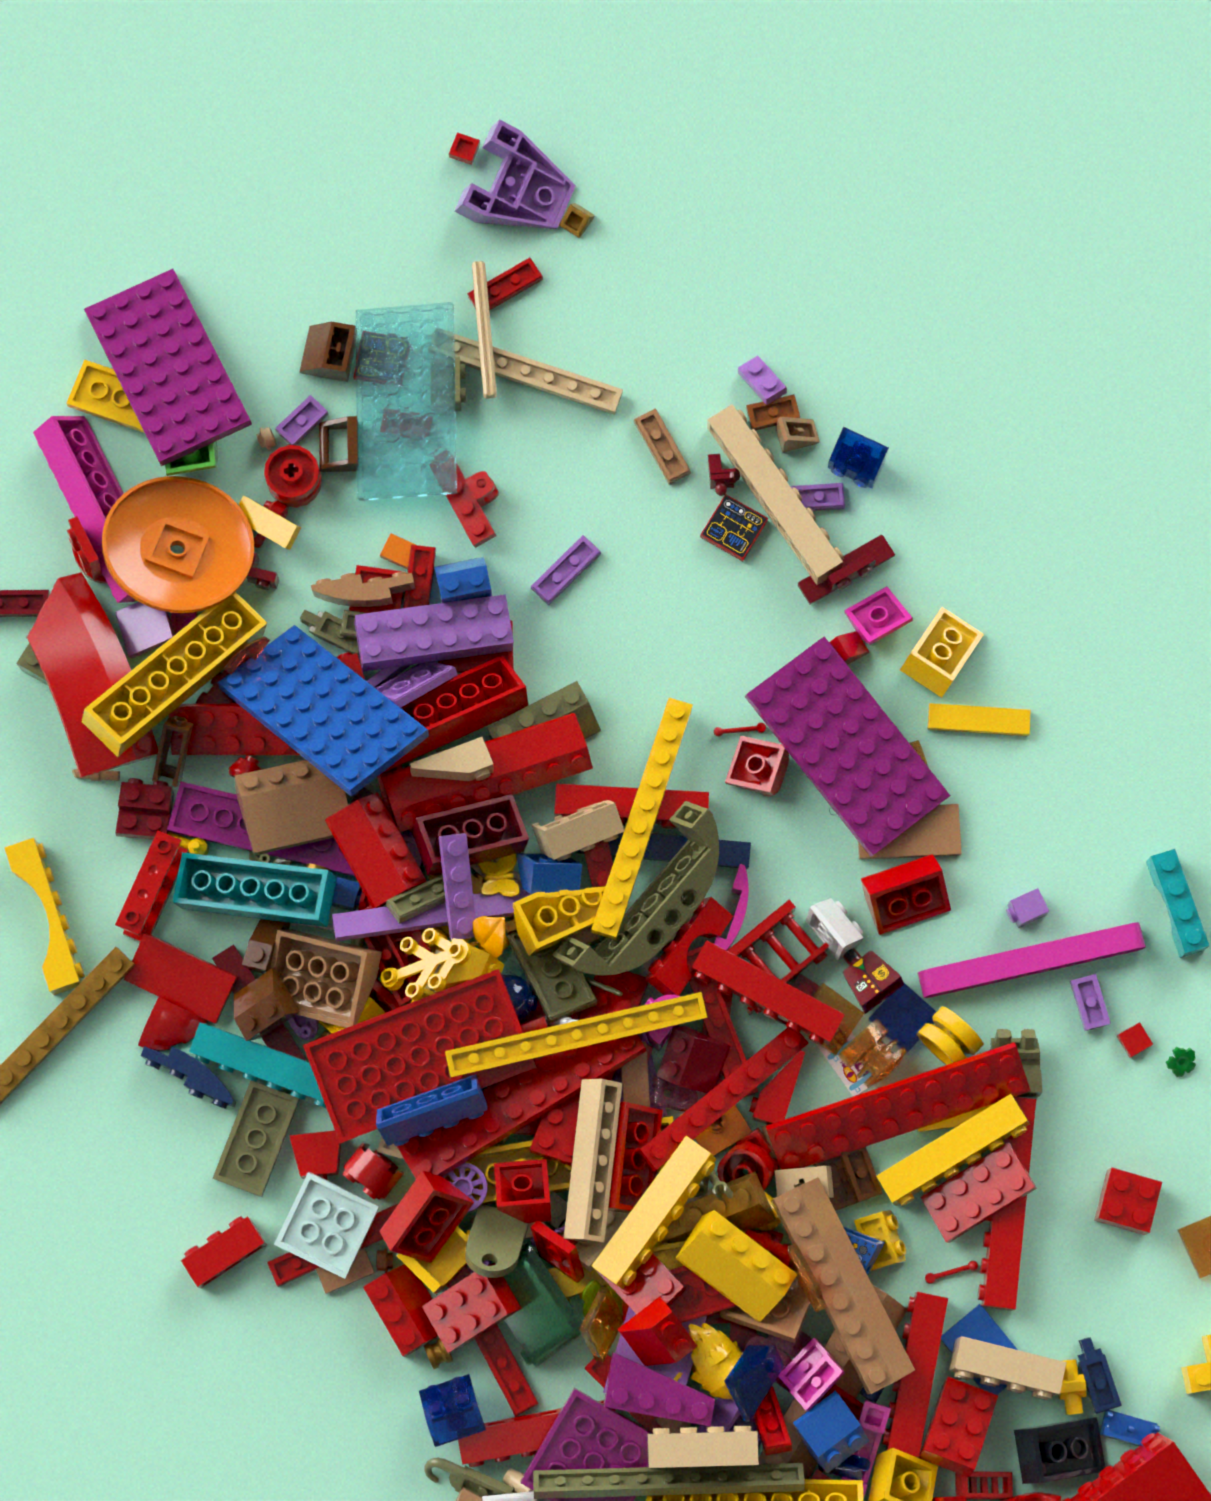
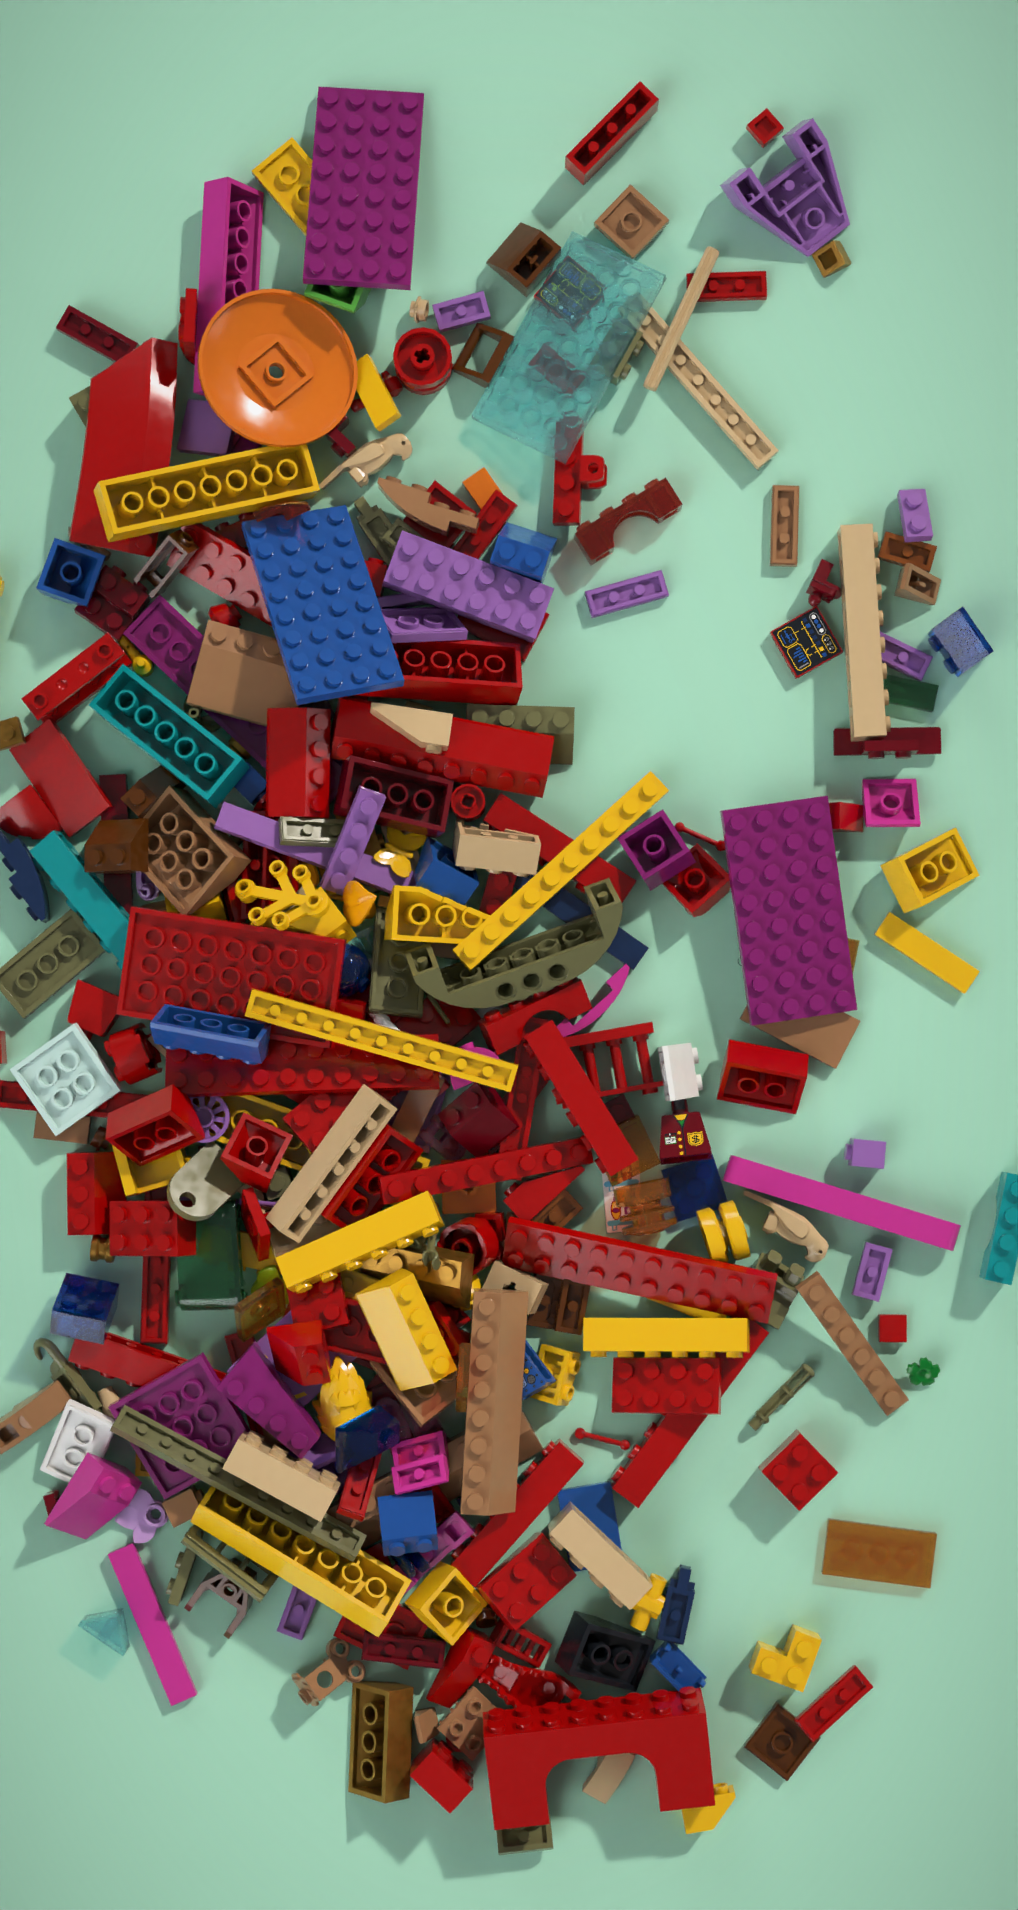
camera: 30 degrees right, 10 degrees up
(97, 804) = (70, 573): none -> blue slope
(294, 576) = (371, 459): none -> tan animal
(344, 217) = (611, 133): none -> red brick
(399, 277) = (631, 222): none -> medium nougat plate
(534, 806) = (468, 802): none -> red wheel
(547, 485) = (655, 502): none -> clear red arch
(711, 758) = (656, 850): none -> magenta brick
(804, 1098) = (559, 1210): none -> dark orange plate
(843, 520) = (911, 693): none -> clear green tile
(944, 1480) = (486, 1618): none -> reddish brown plate
(1003, 1003) = (792, 1228): none -> tan animal
(1078, 1149) = (782, 1395): none -> olive piece
(1109, 1069) = (851, 1343): none -> medium nougat plate

